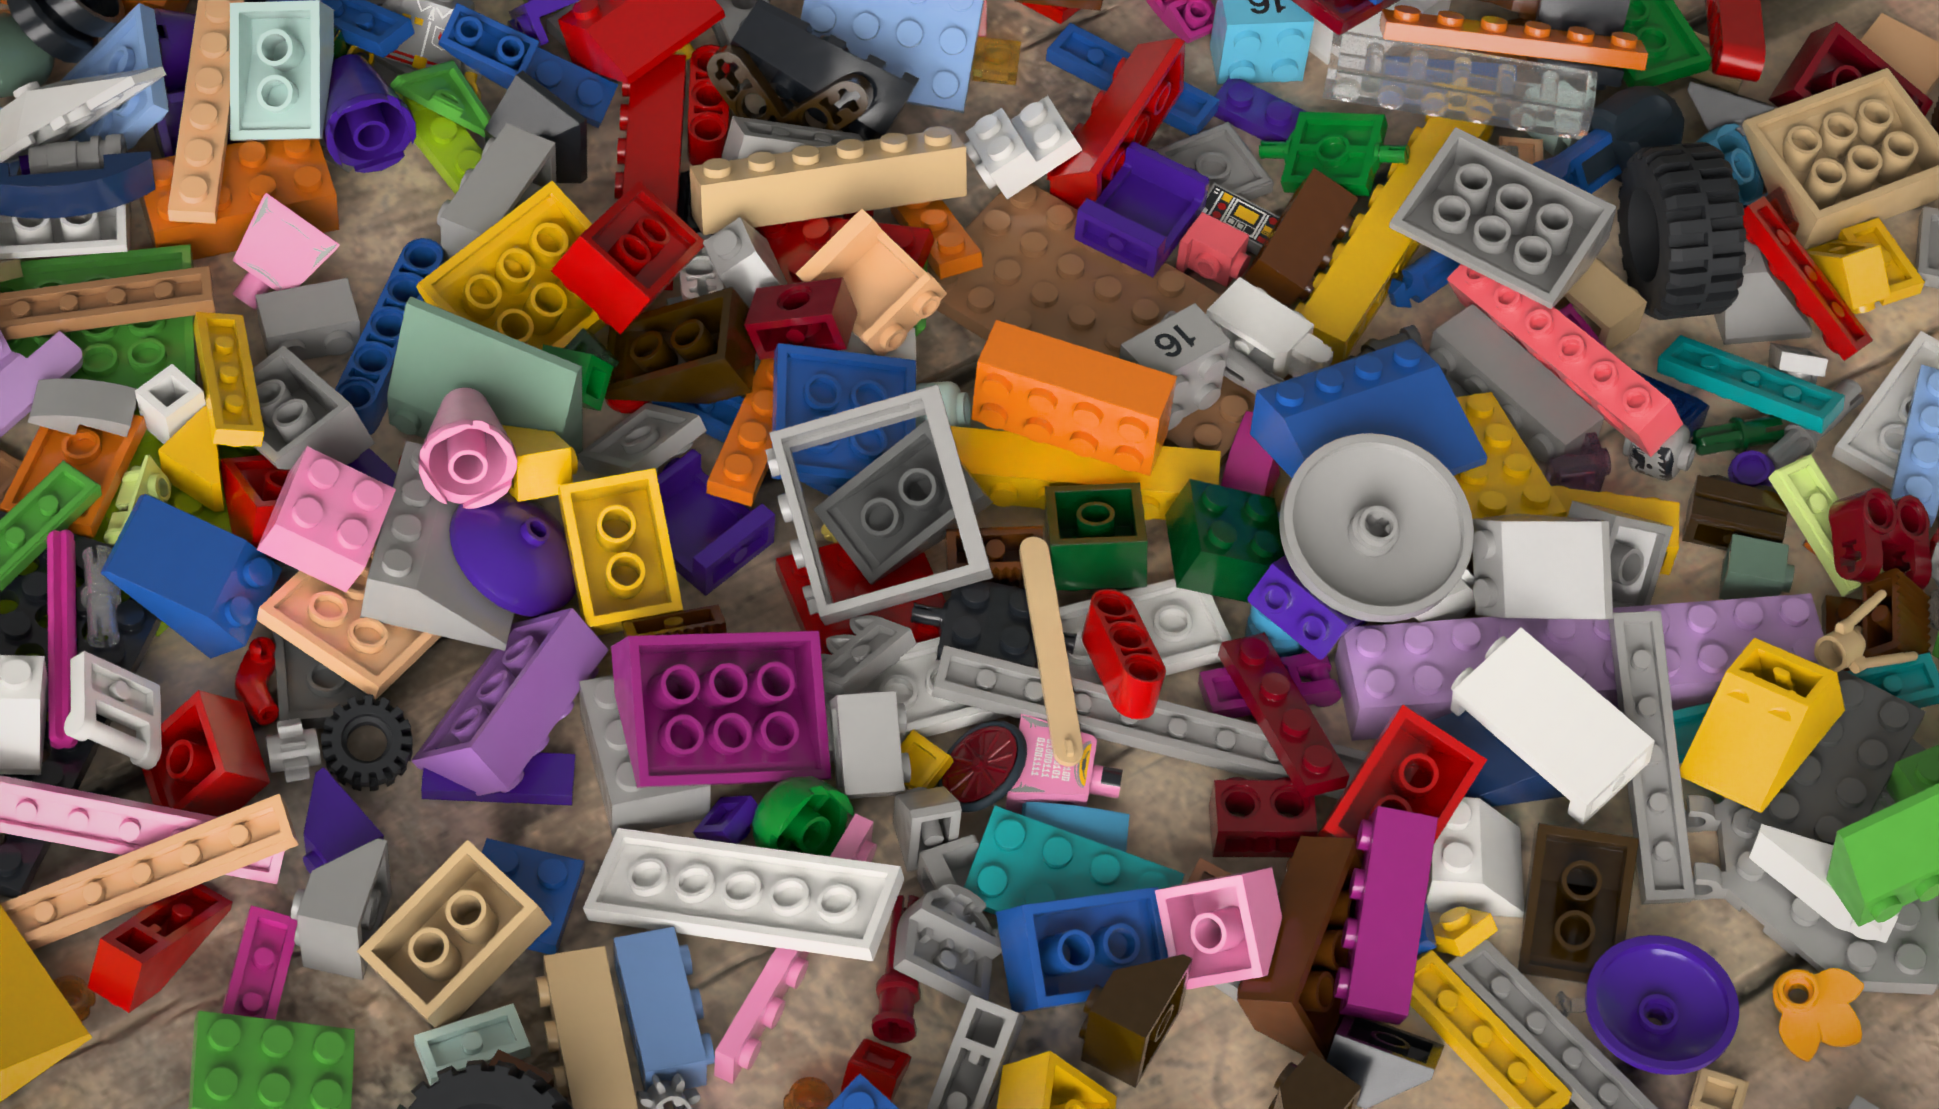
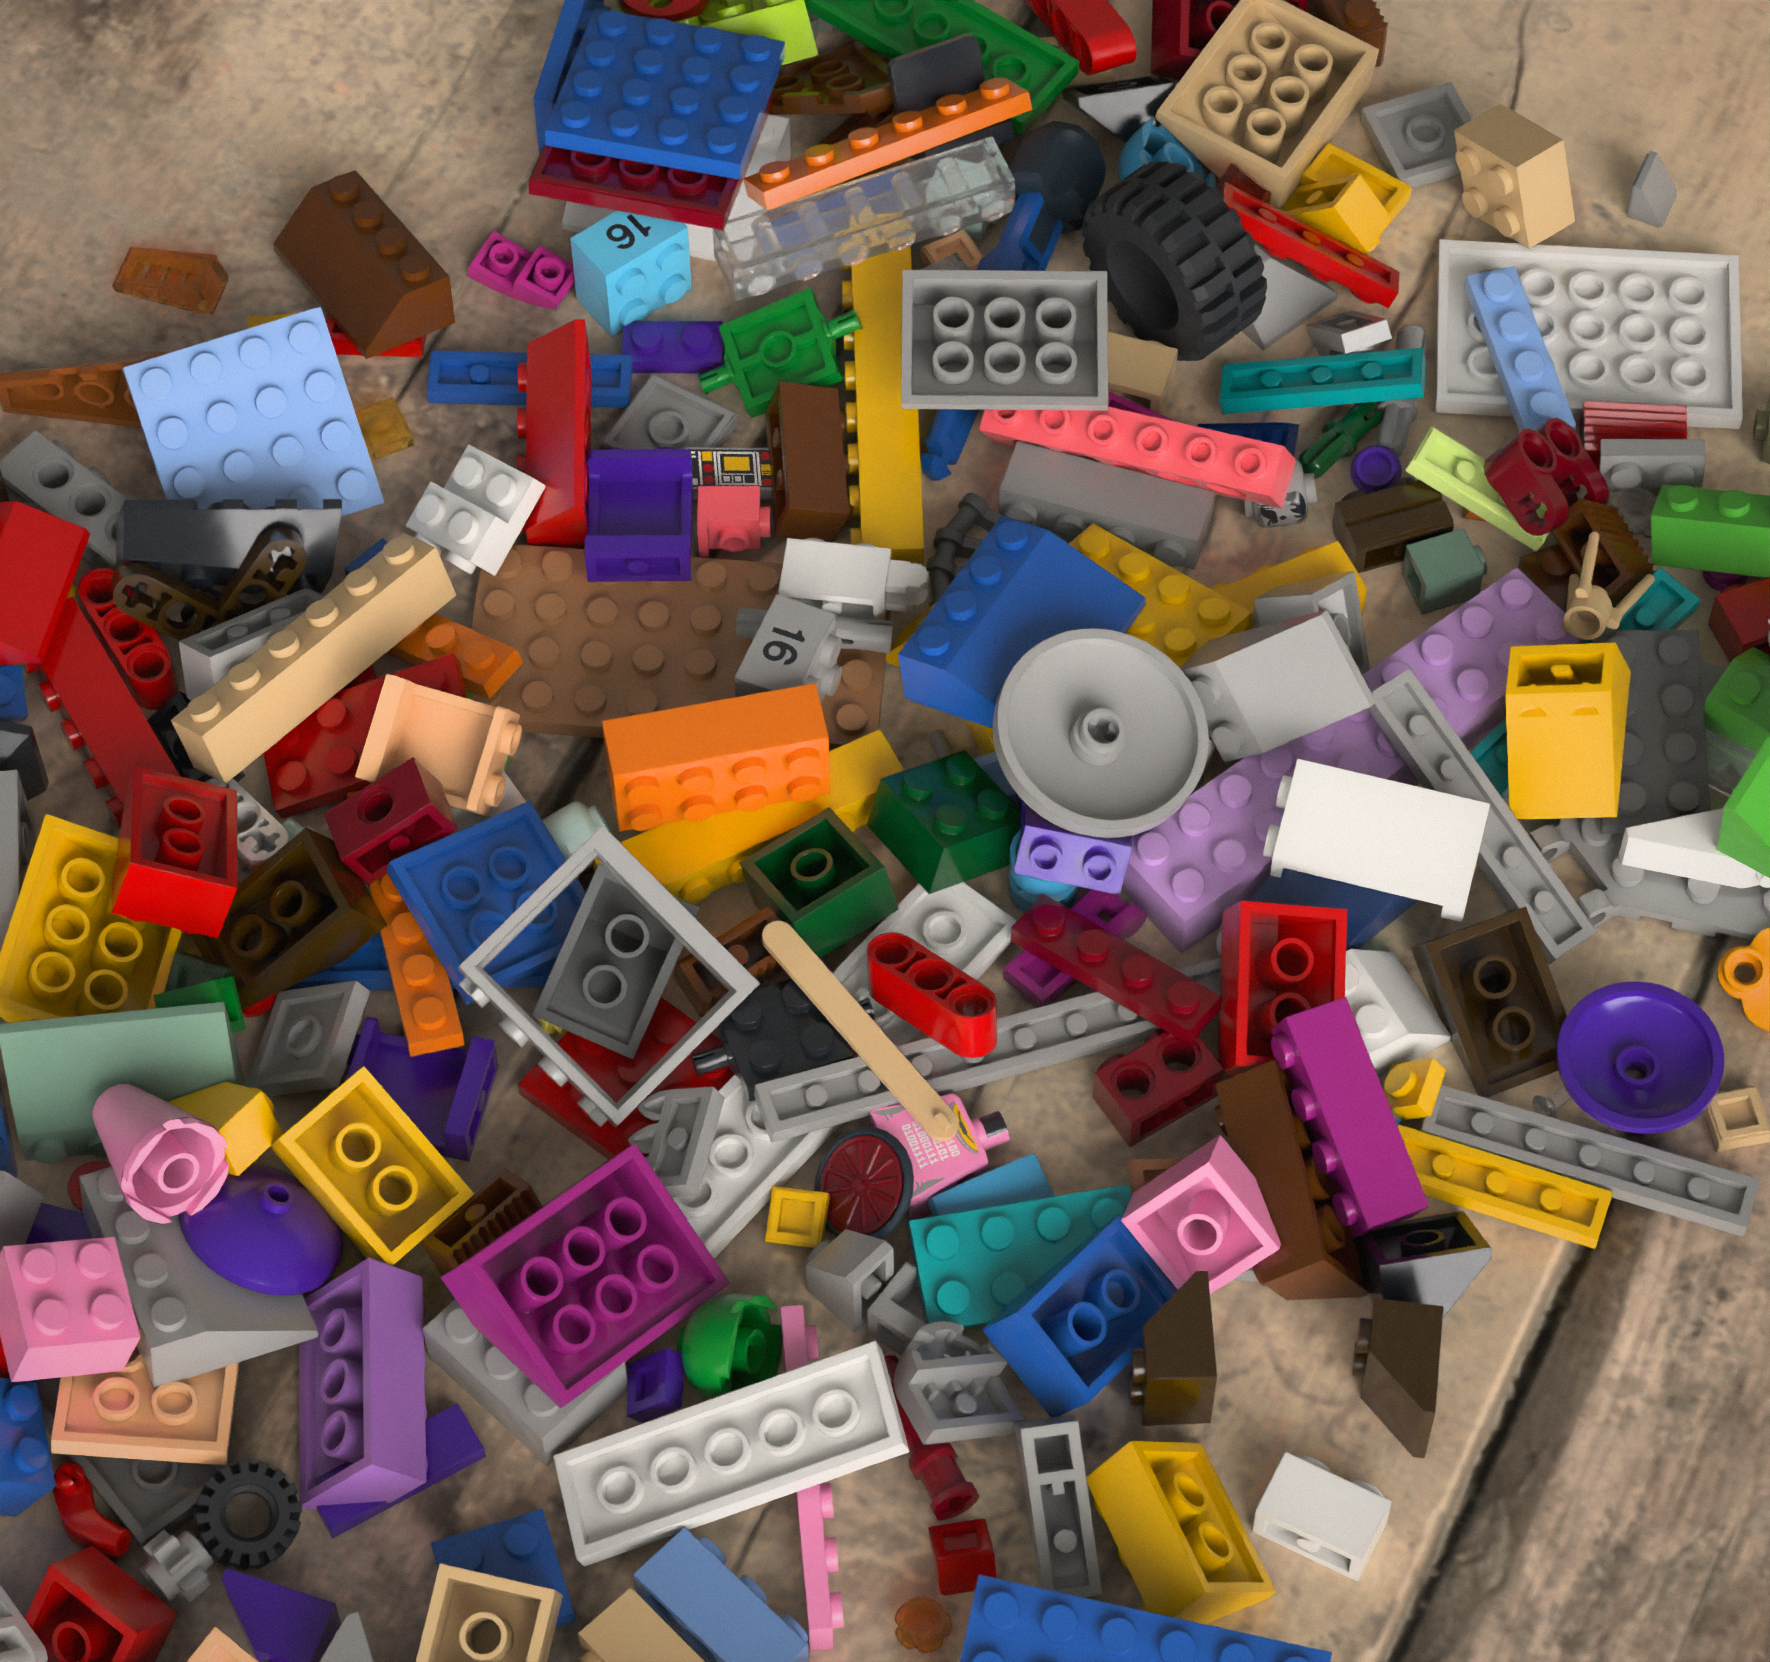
camera: 25 degrees left, 5 degrees up
(743, 259) = (290, 791): light grey slope -> none
(869, 744) = (748, 1229): light grey brick -> none
(1248, 464) = (912, 728): dark pink slope -> none
(1582, 470) = (1224, 555): bracket -> none

